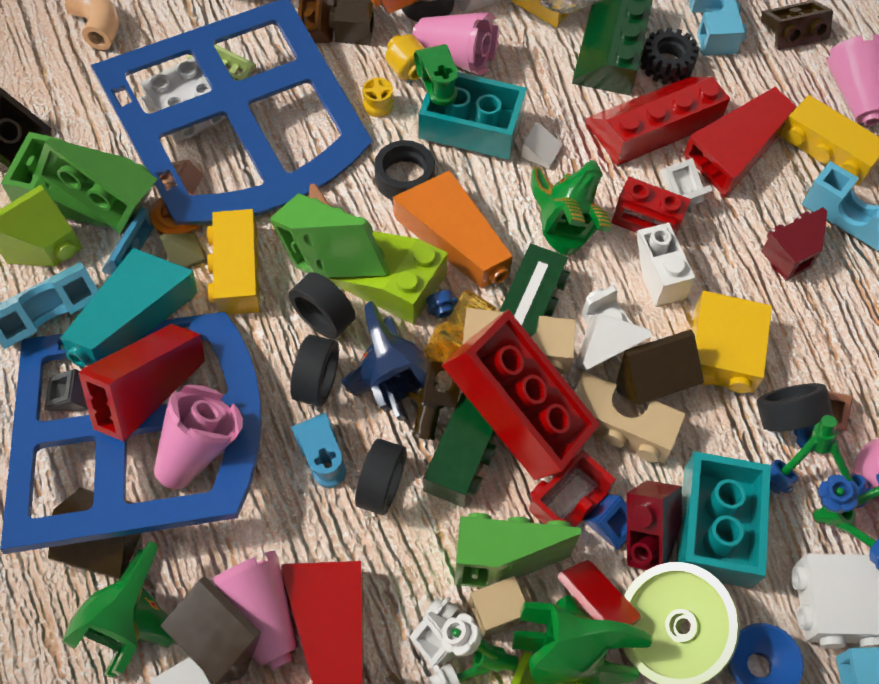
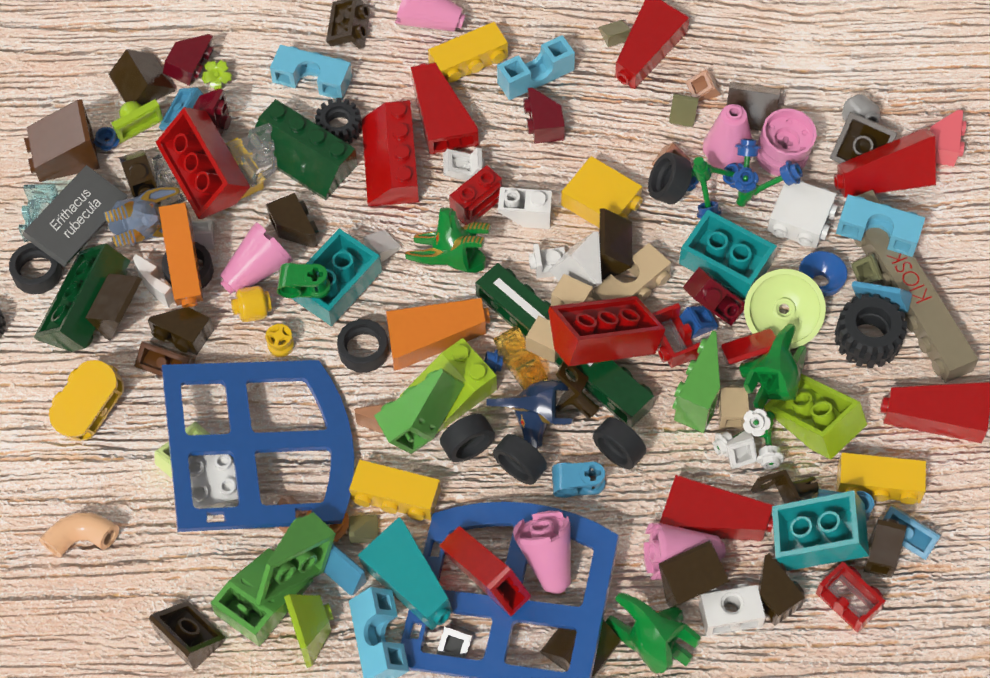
camera: 65 degrees left, 0 degrees up
(527, 54) = (291, 221): none -> dark brown slope

